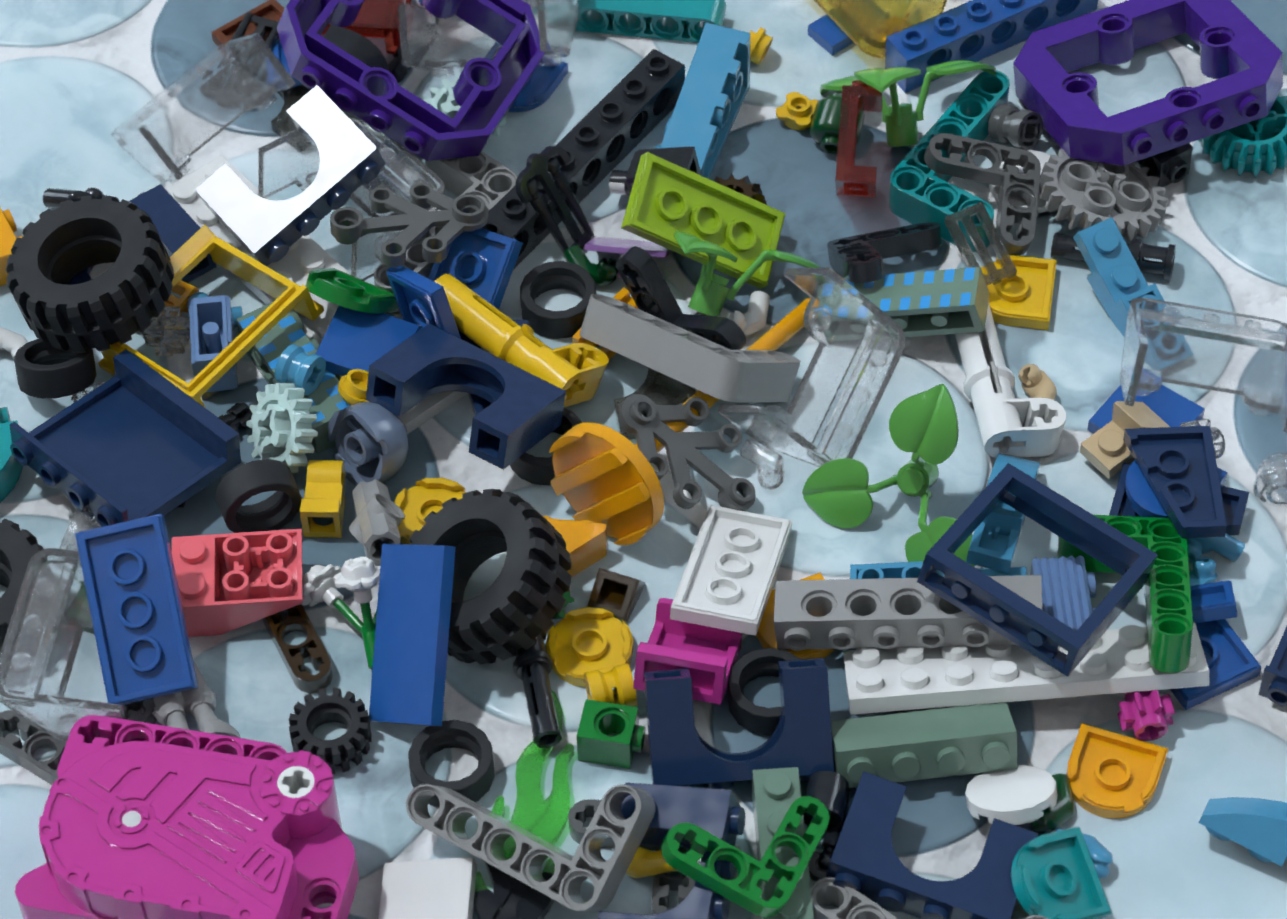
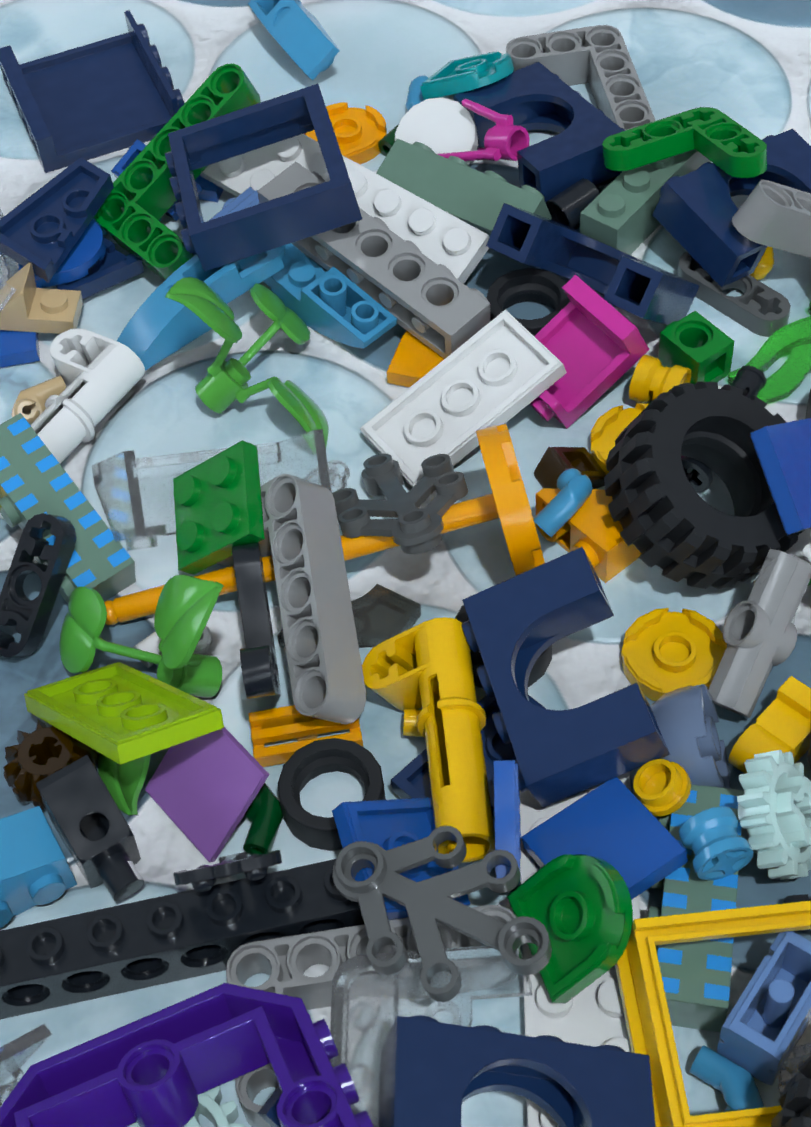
camera: 135 degrees left, 0 degrees up
(571, 513) = (573, 494): none -> dark azure arm
(785, 352) = (218, 507): none -> green plate
(929, 794) = (500, 141): none -> dark pink plant

